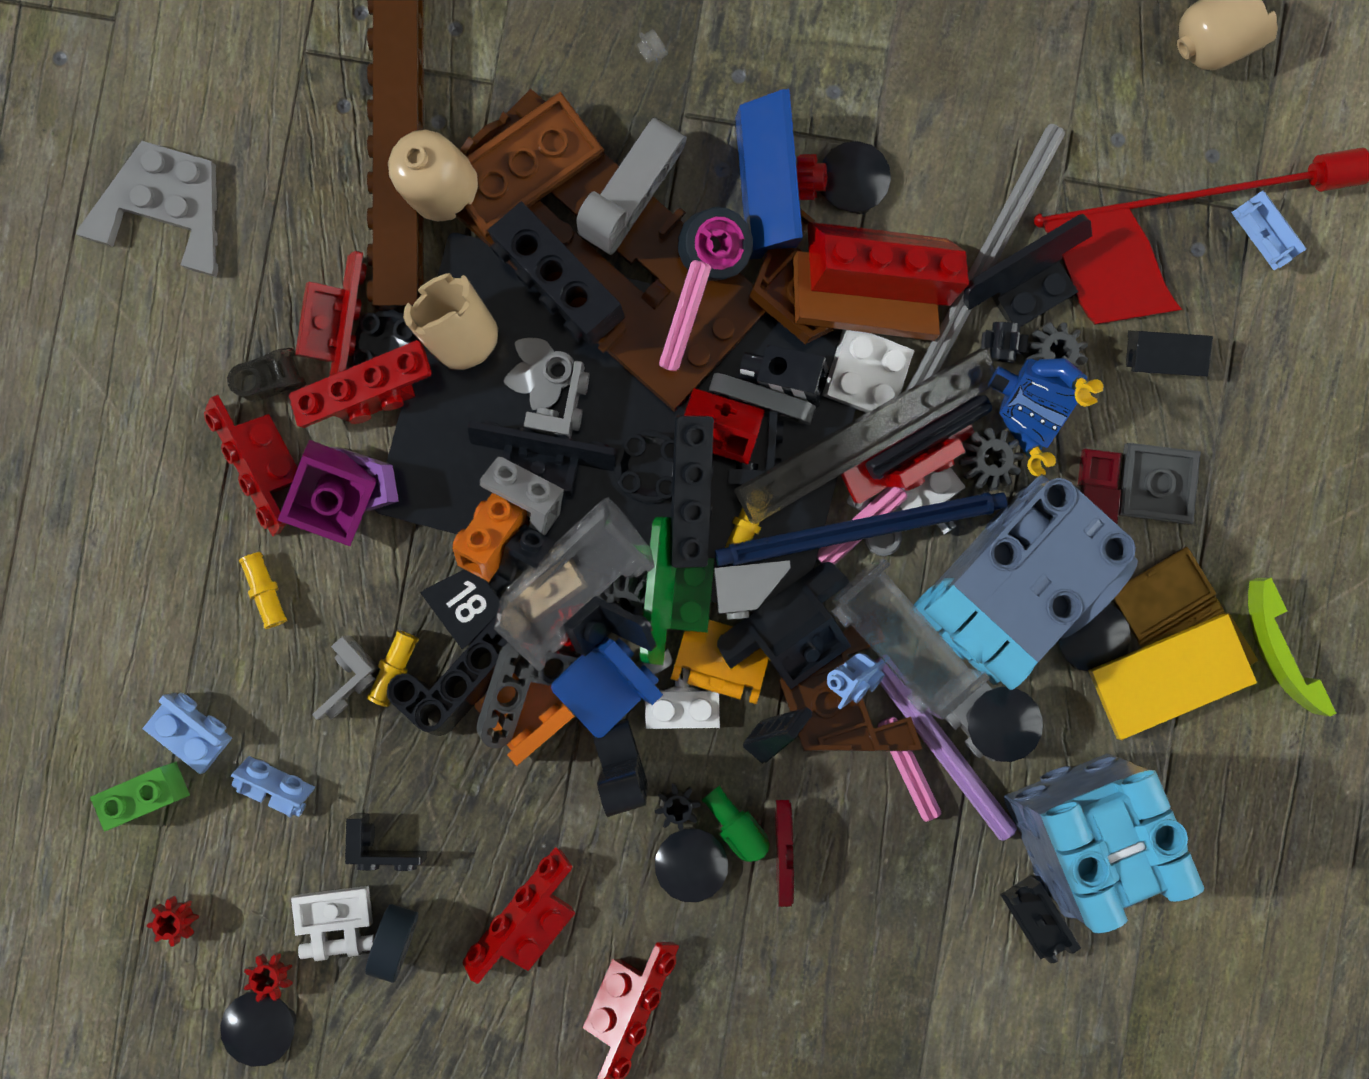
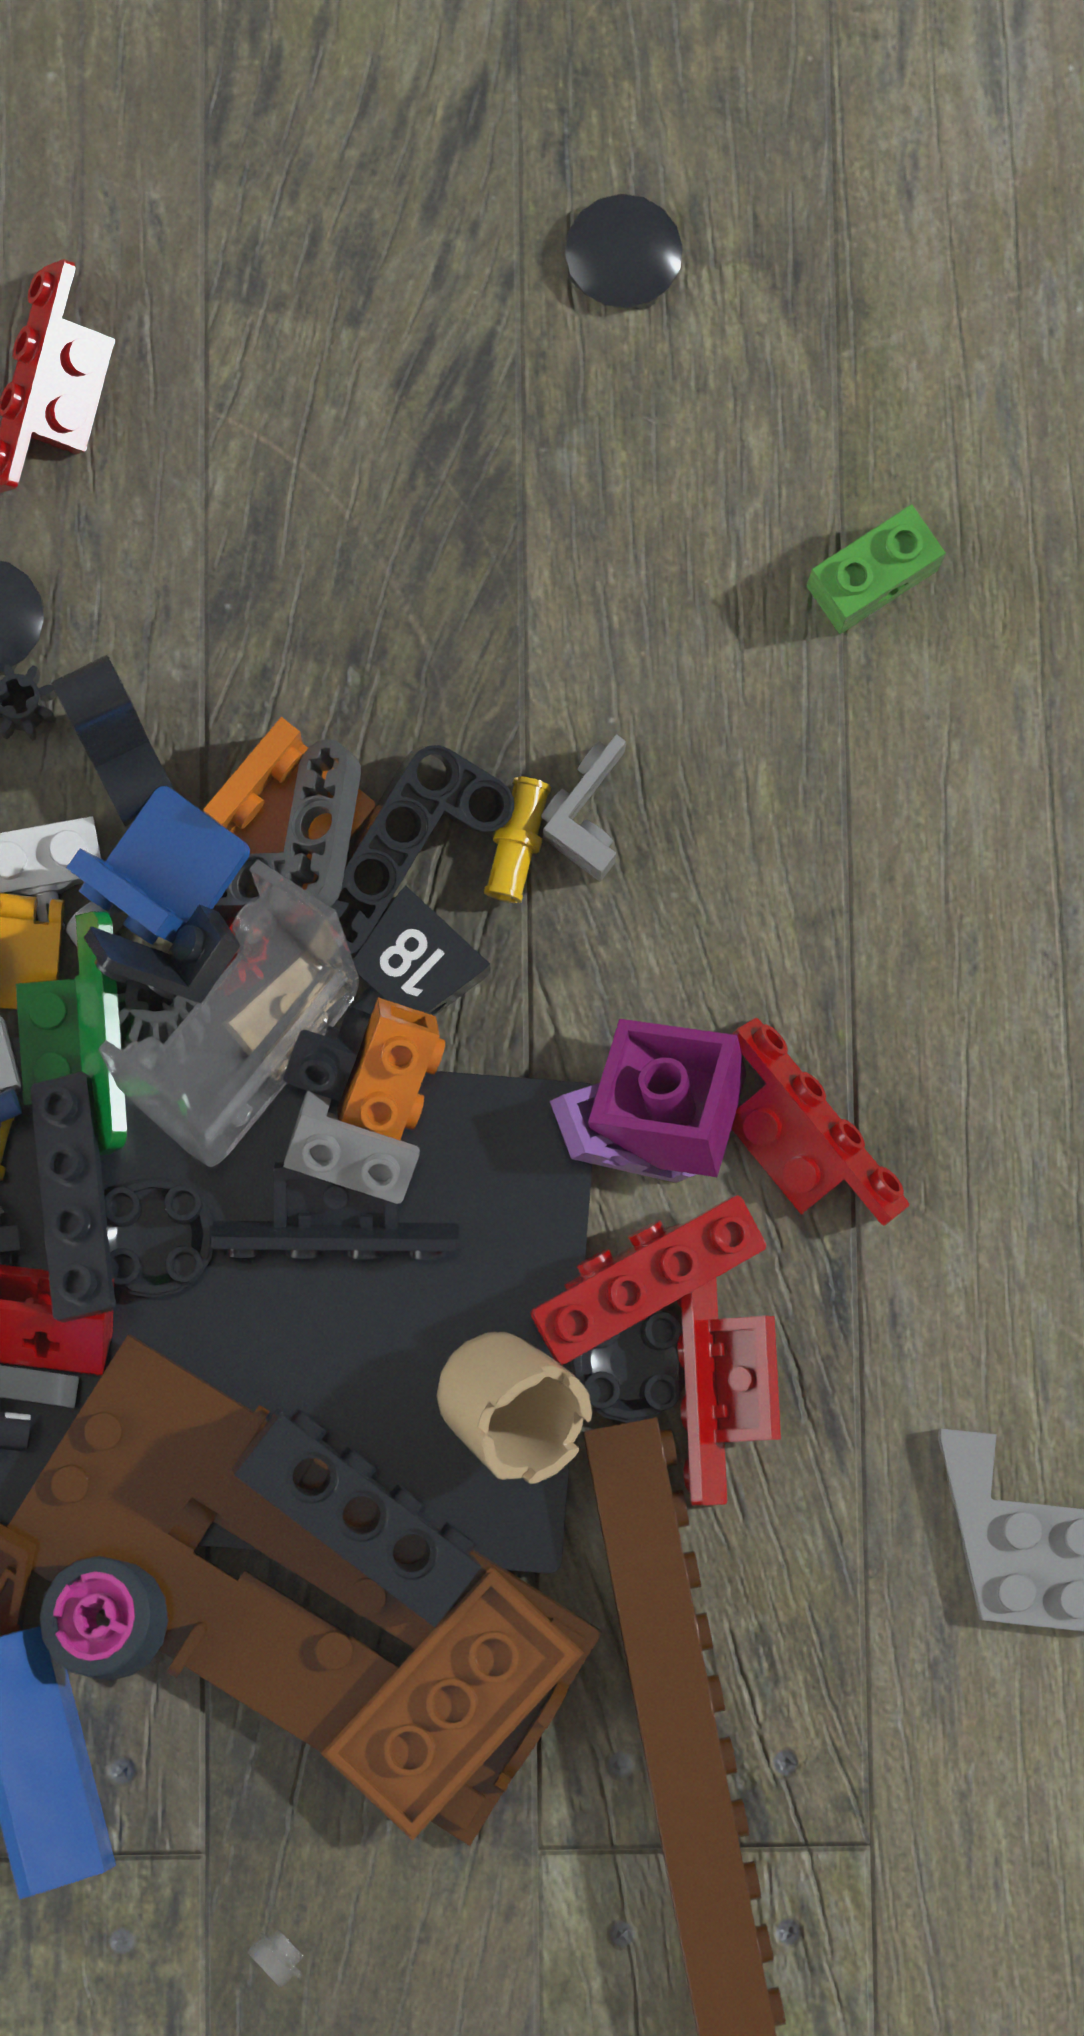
camera: 170 degrees right, 5 degrees down
(162, 922) = (776, 377): red gear -> none
(187, 731) = (826, 683): light blue bracket -> none
(257, 778) = (647, 617): light blue hinge -> none
(258, 981) = (634, 324): red gear -> none
(263, 590) = (751, 926): yellow pin -> none
(274, 375) = (809, 1275): clear smoke piece -> none
(333, 911) = (539, 446): white plate -> none
(361, 835) = (494, 535): black bracket -> none
(391, 943) = (432, 415): black wheel -> none
(432, 175) = (585, 1640): tan cylinder -> none
(526, 923) = (231, 483): red bracket -> none
(535, 372) = (372, 1358): light grey plate -> none
(547, 421) = (335, 1280): light grey bracket -> none
(610, 215) = (260, 1697): light grey beam -> none
(685, 315) = (131, 1485): bright pink axle -> none

